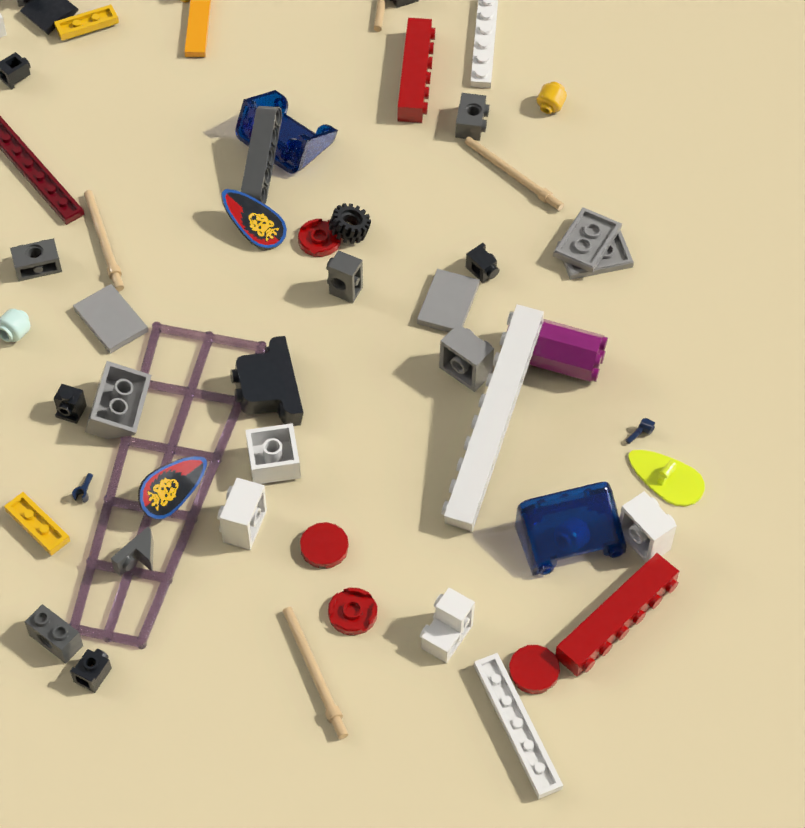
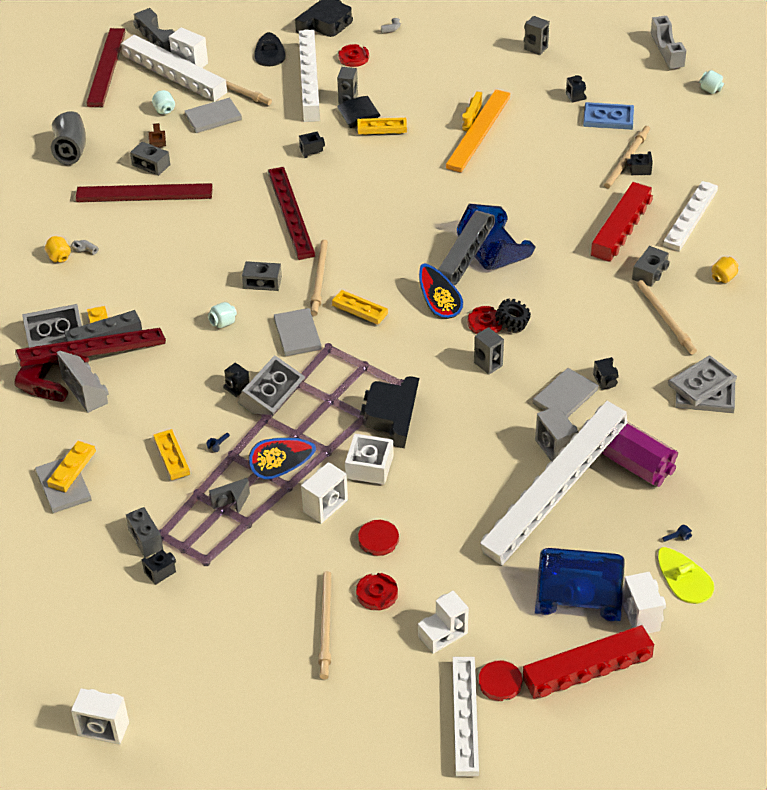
camera: 25 degrees right, 10 degrees down
(169, 264) = (359, 307): none -> yellow plate

